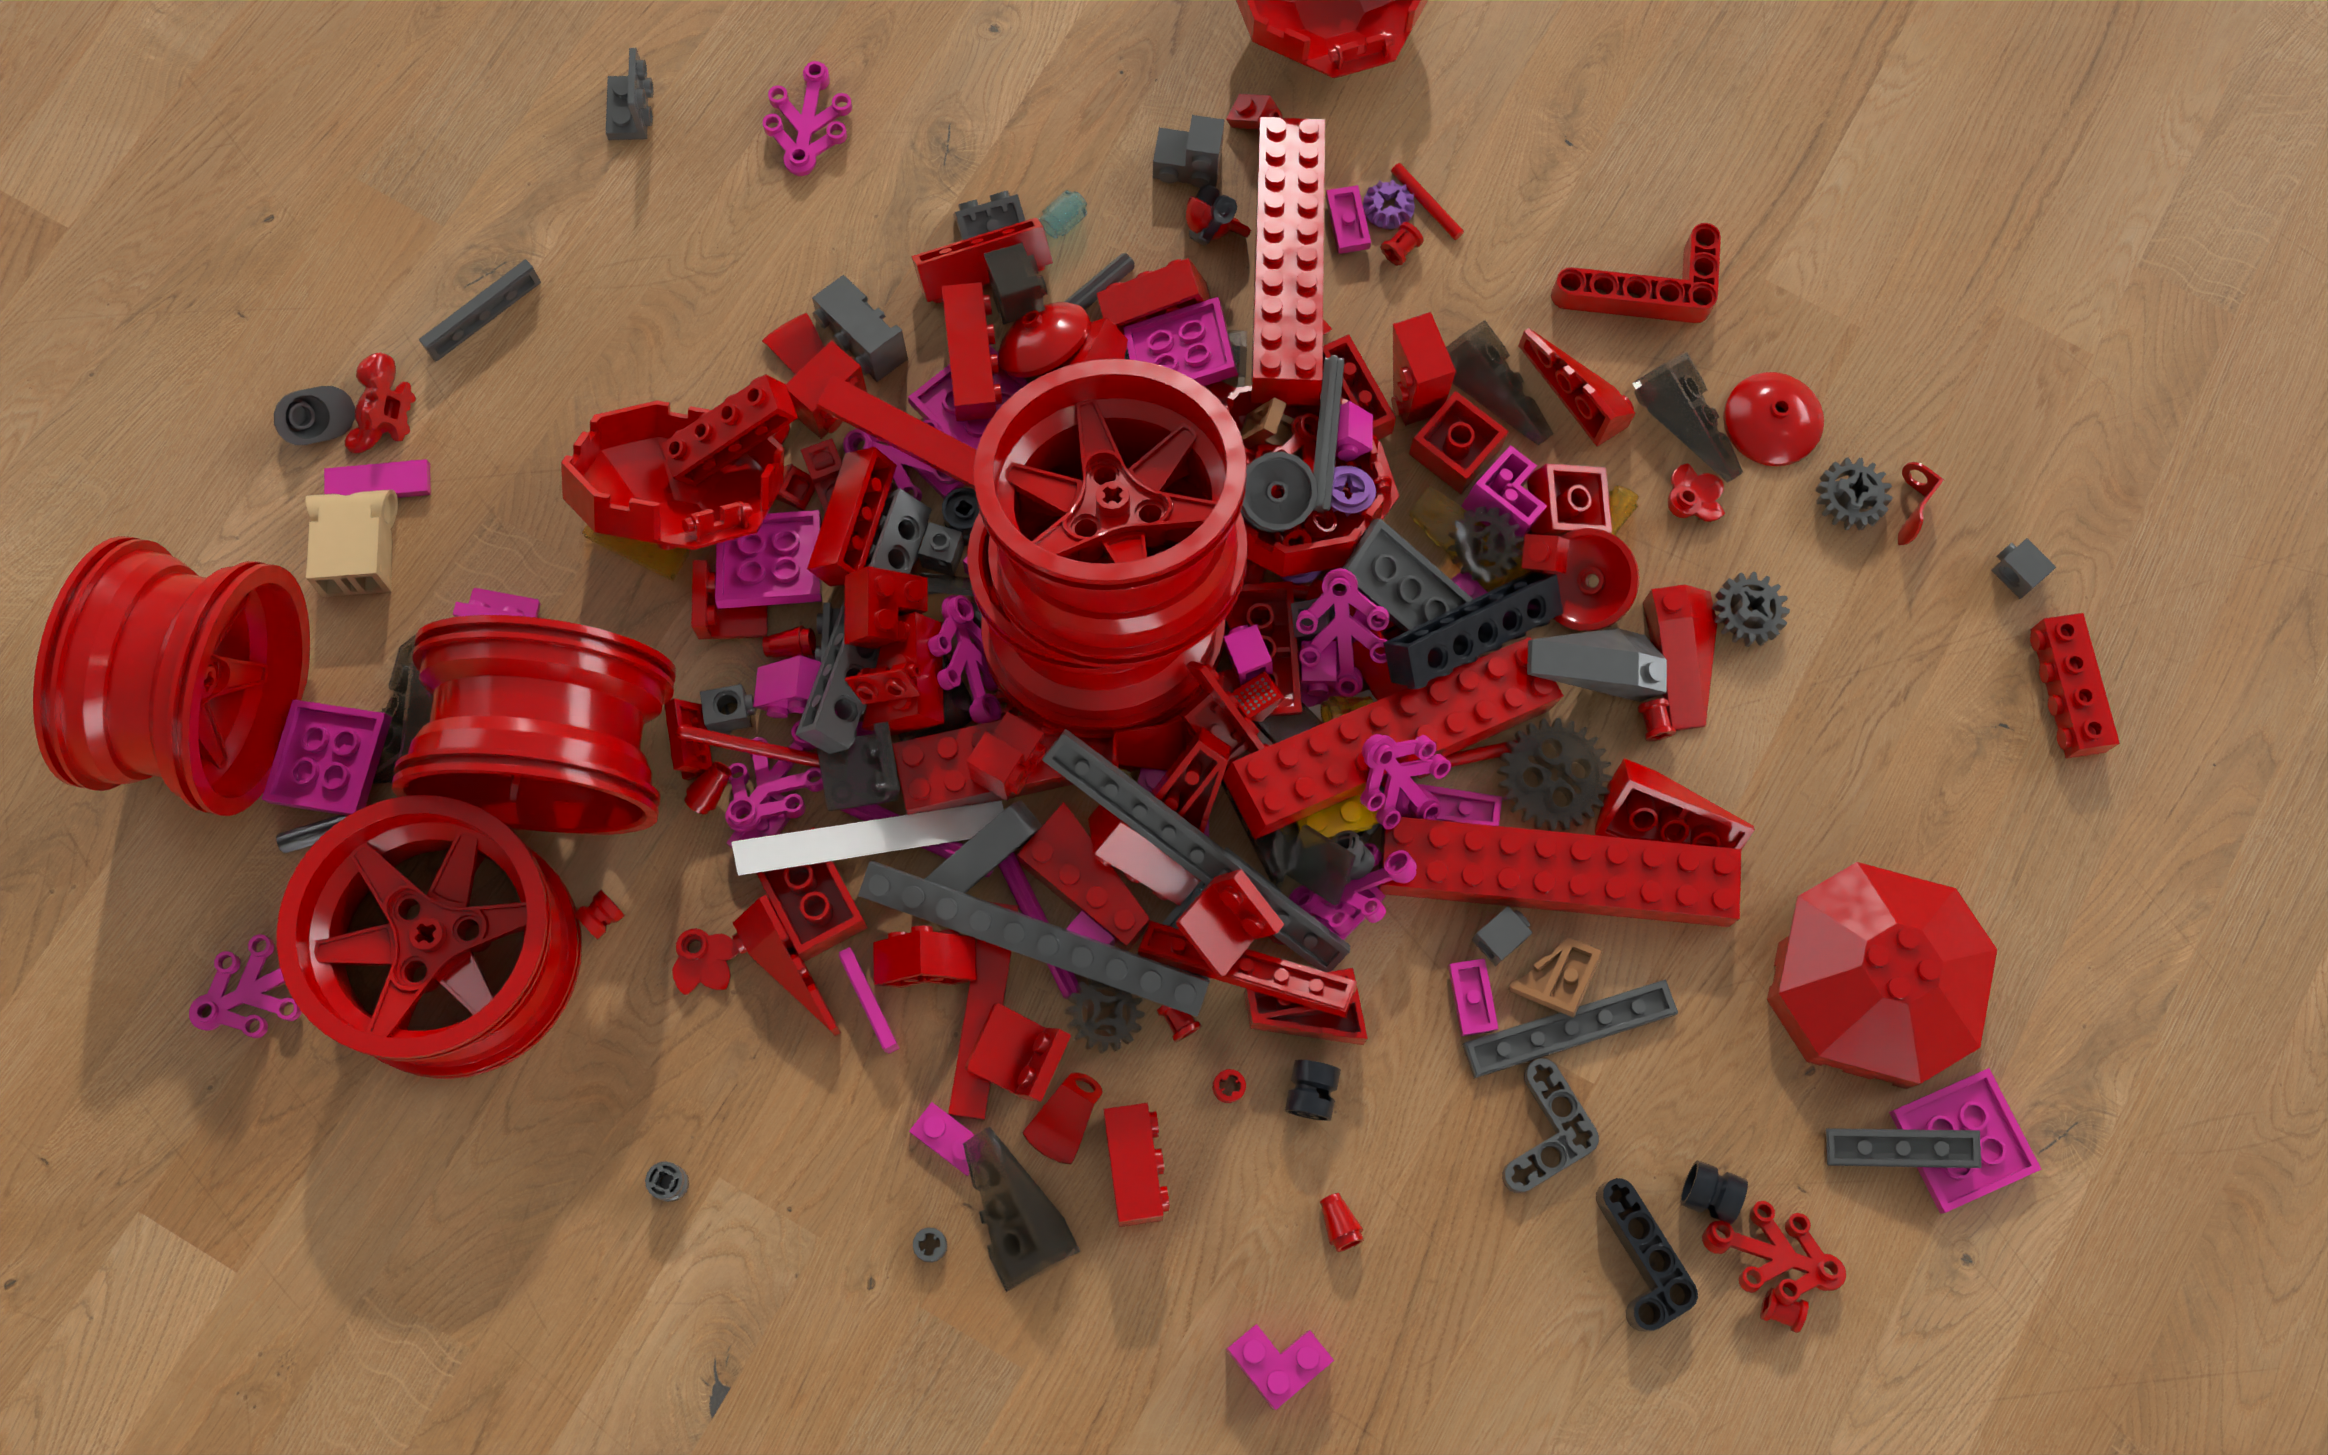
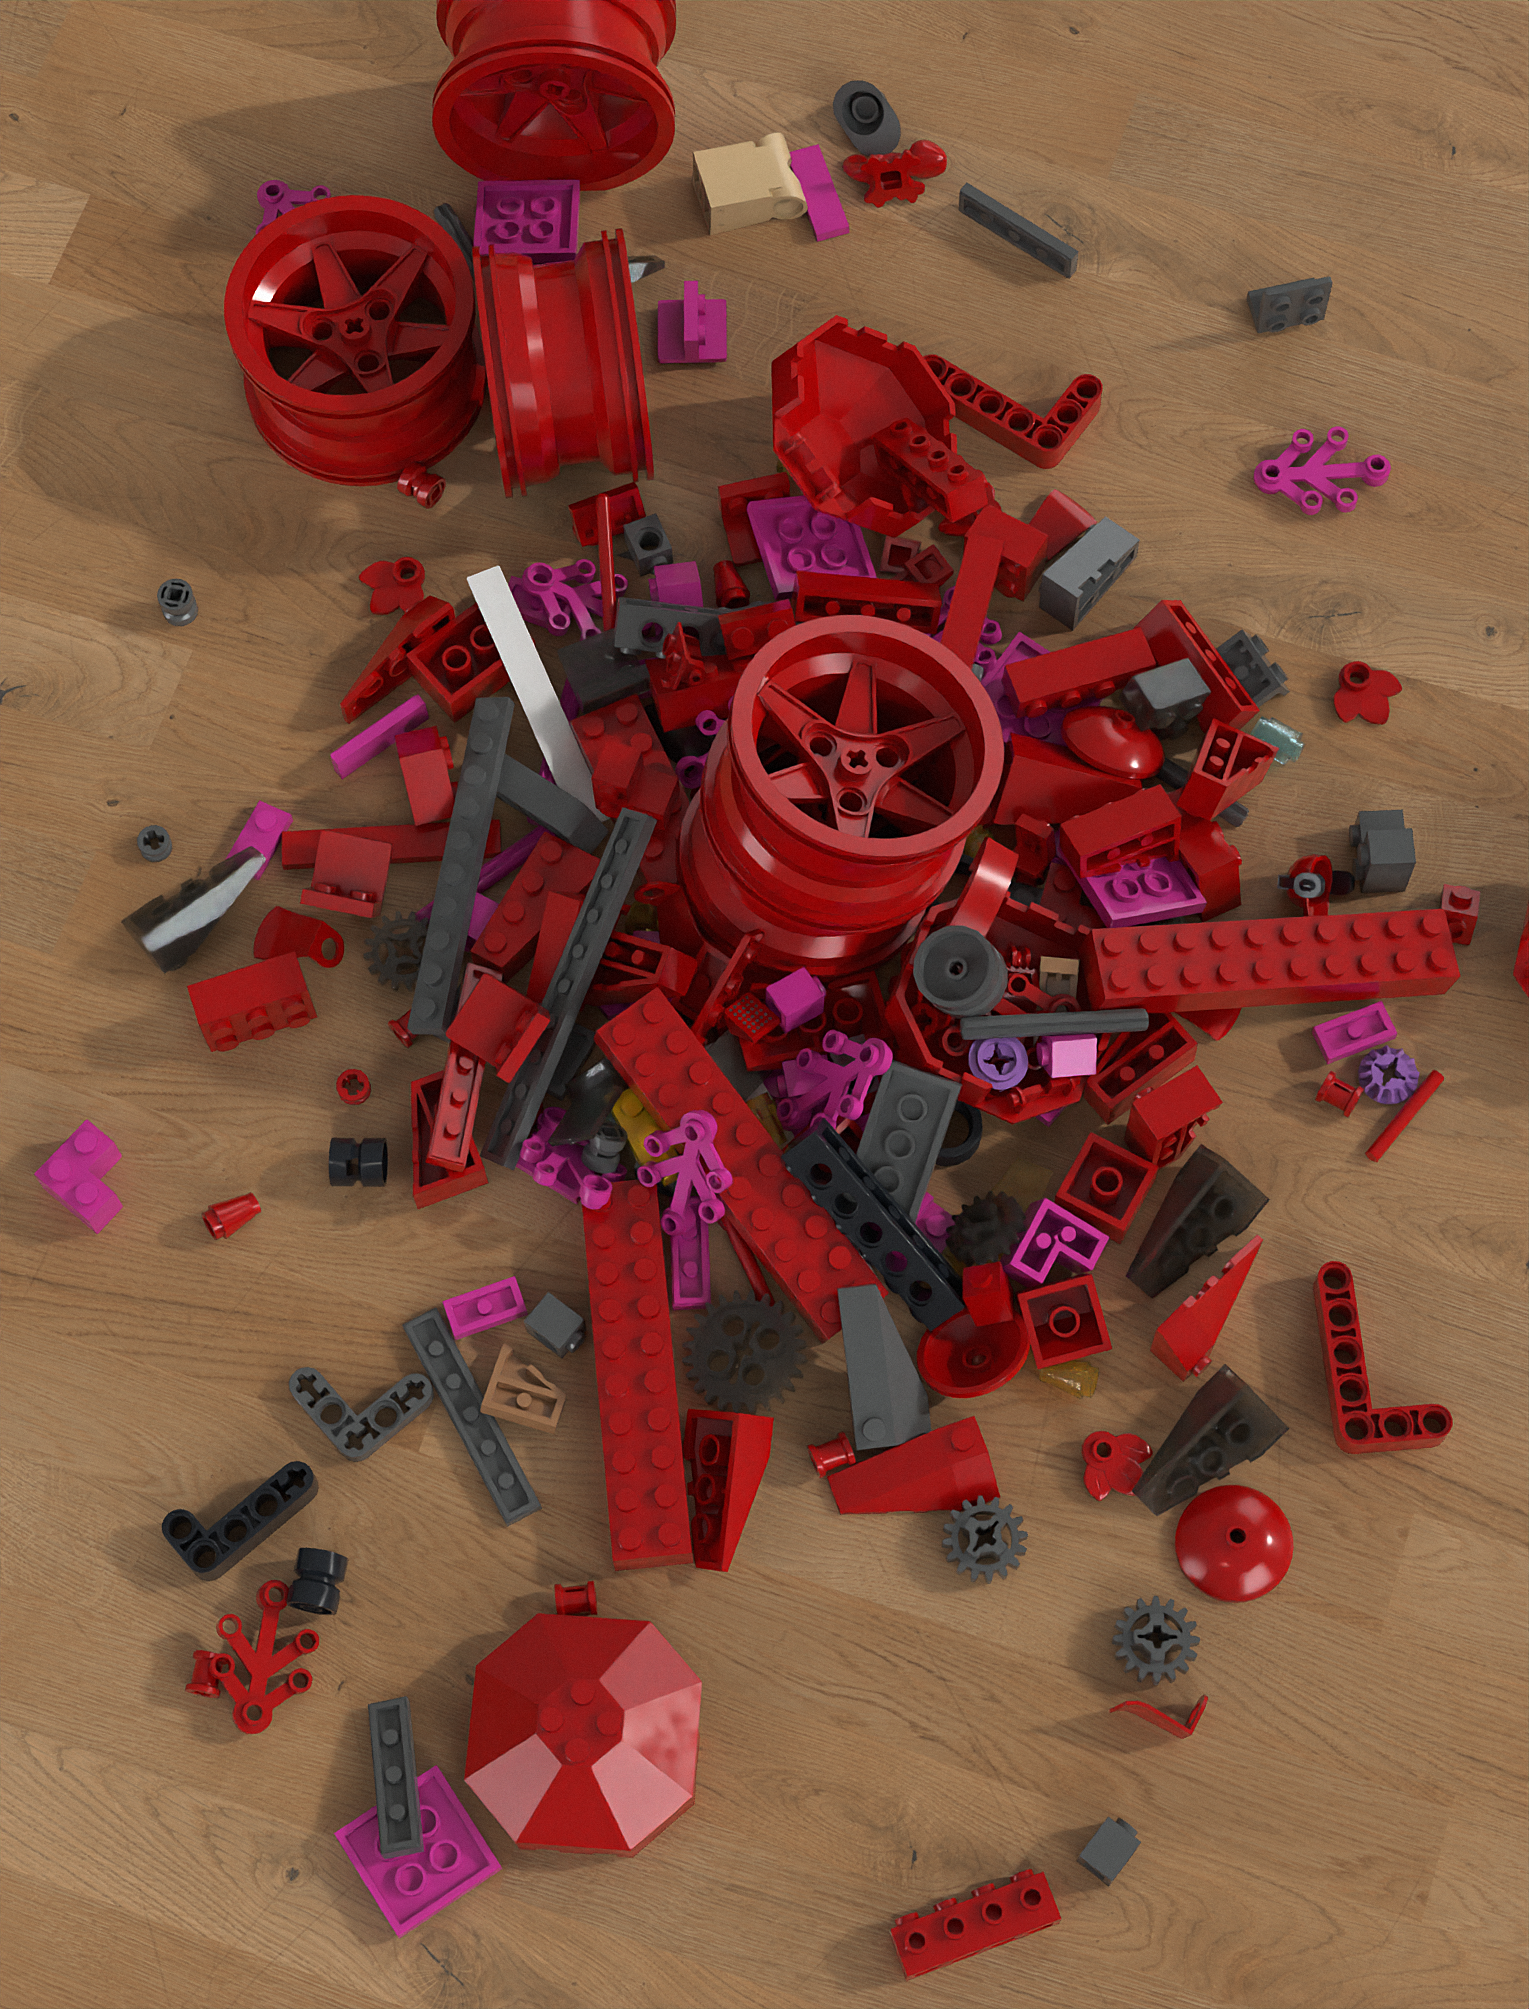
camera: 85 degrees right, 5 degrees down
(675, 359) = (1010, 414): none -> red beam
(708, 788) = (560, 546): red cone -> none
(1036, 135) = (1367, 698): none -> red plate
(1092, 257) = (1224, 770): none -> red wedge
(1146, 327) = (1123, 833): none -> red wedge
(1757, 962) = (576, 1599): none -> red bush

